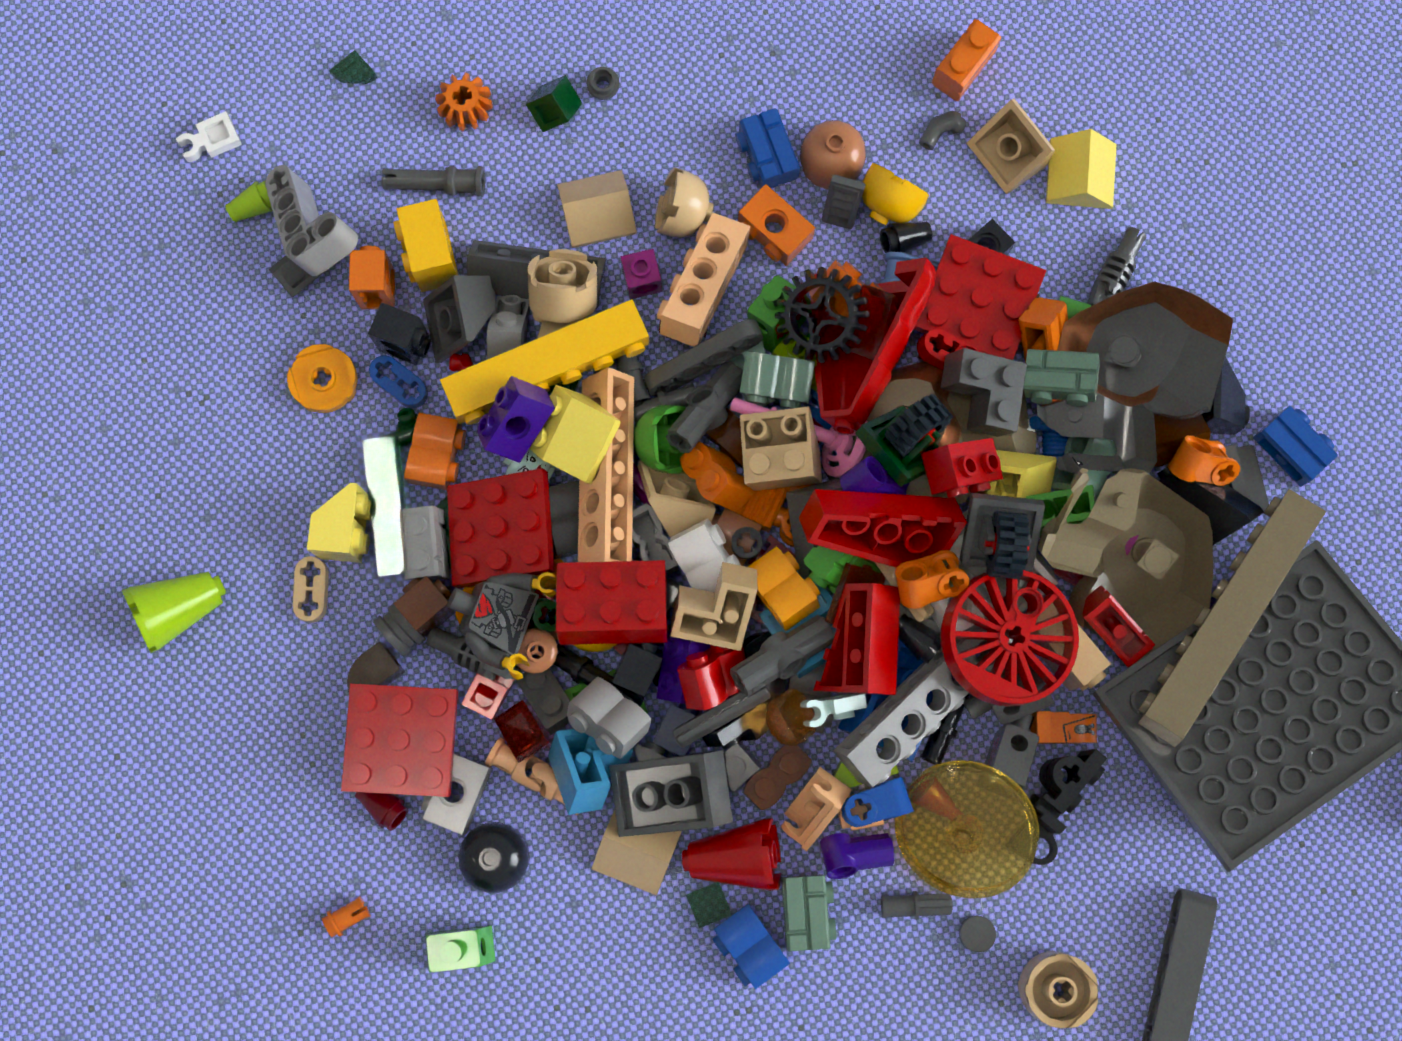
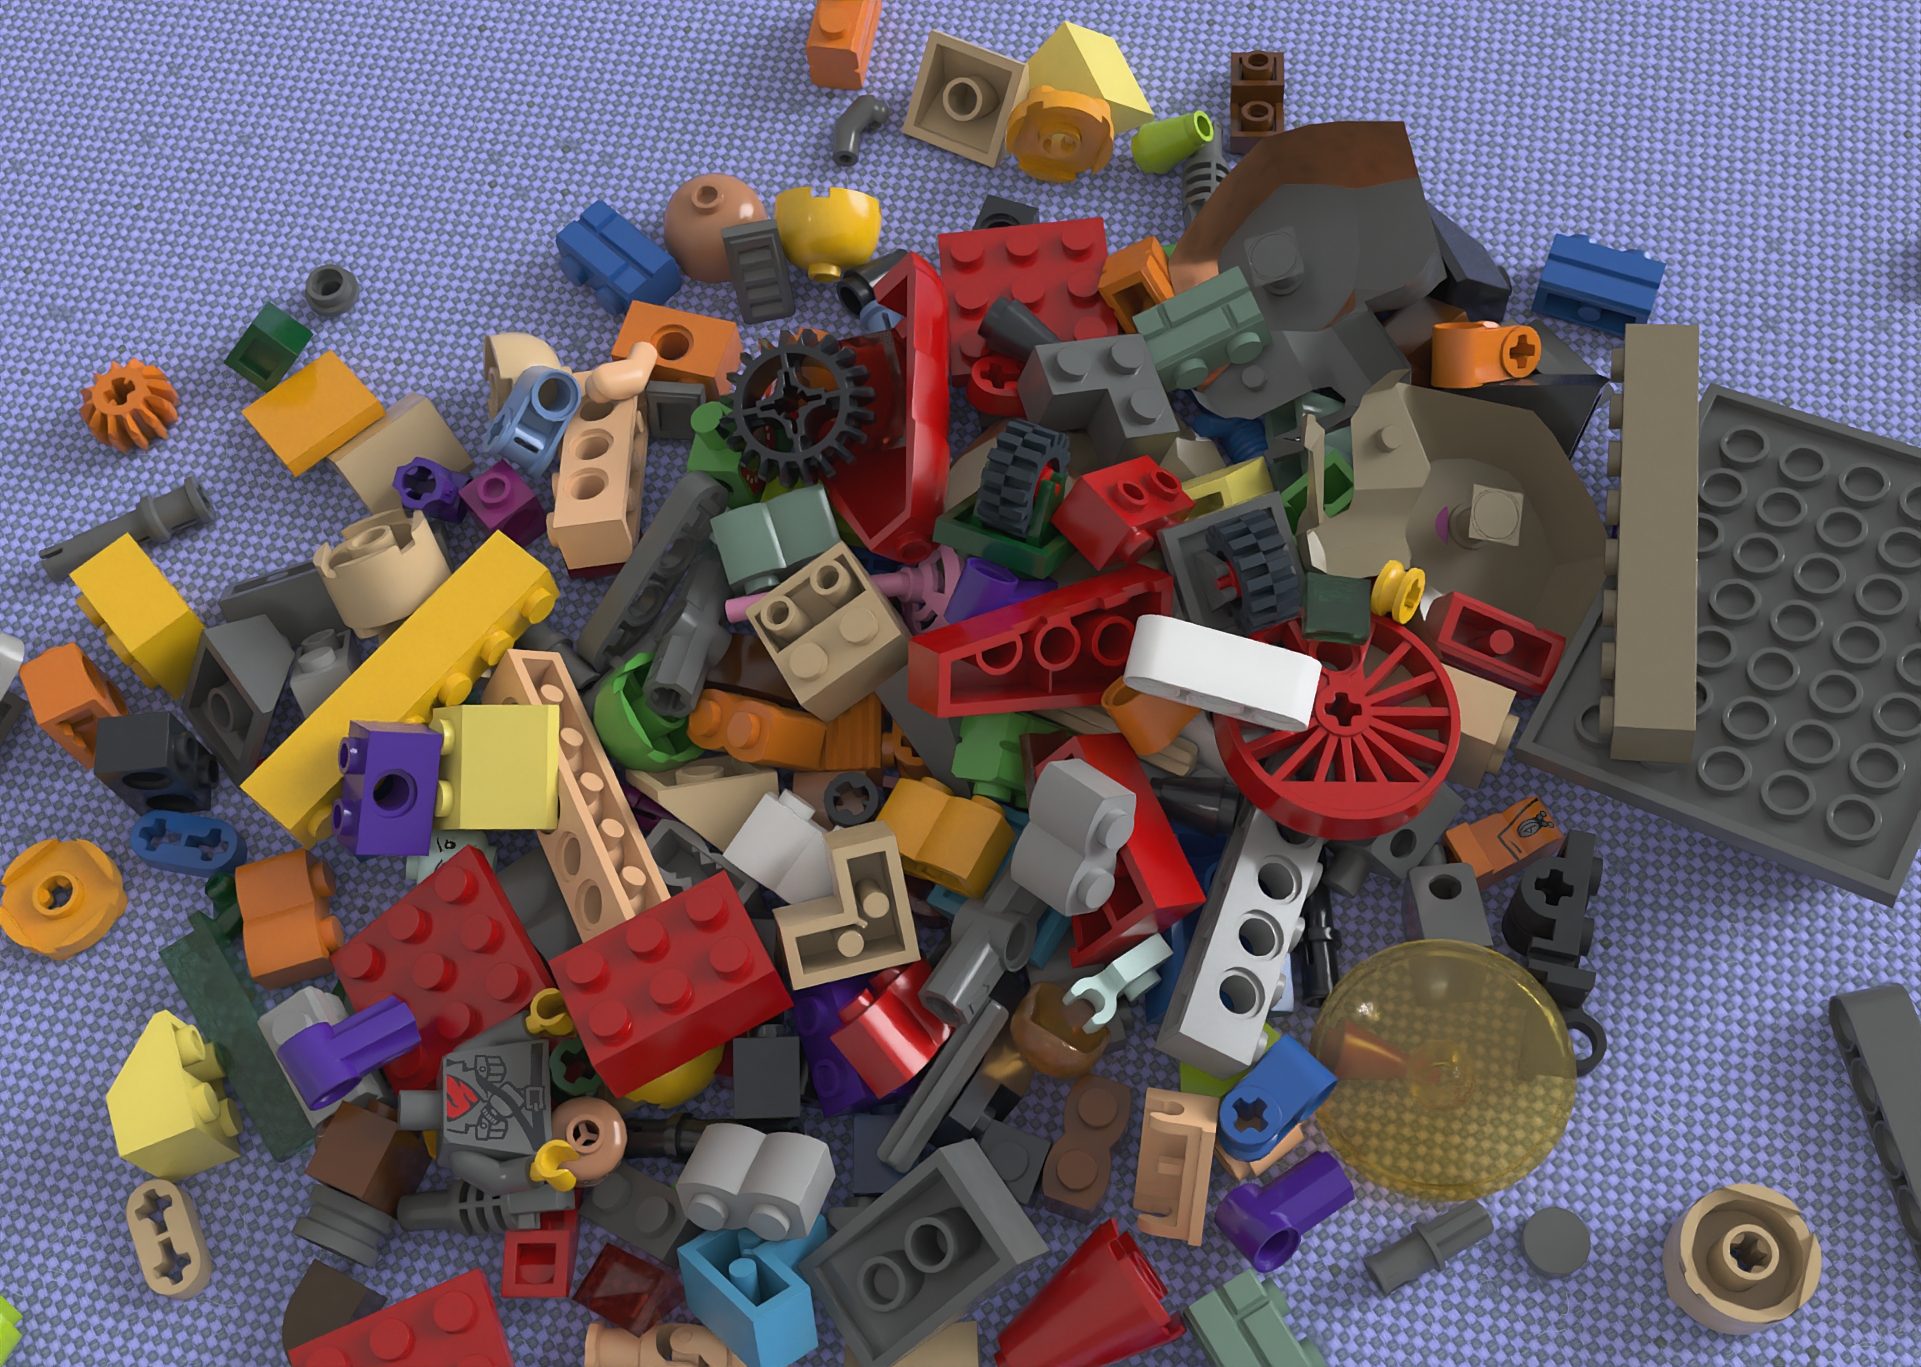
camera: 15 degrees left, 15 degrees down
(431, 554) = (331, 1060): none -> dark purple piece
(562, 158) = (313, 413): none -> light orange tile
(608, 247) = (432, 489): none -> dark purple piece
(676, 236) = (530, 422): none -> medium blue piece
(739, 236) = (624, 377): none -> light nougat arm
(759, 261) = (671, 408): none -> dark grey tile
(845, 635) = (1073, 837): none -> light grey brick
(962, 593) = (1222, 673): none -> white beam
(963, 326) = (1014, 329): none -> black cone
(1040, 582) = (1336, 609): none -> clear green tile
(1050, 199) = (1060, 112): none -> light orange plate
(1077, 588) = (1397, 591): none -> yellow bush
(1111, 234) = (1169, 141): none -> lime cone
(1174, 229) = (1255, 98): none -> reddish brown slope

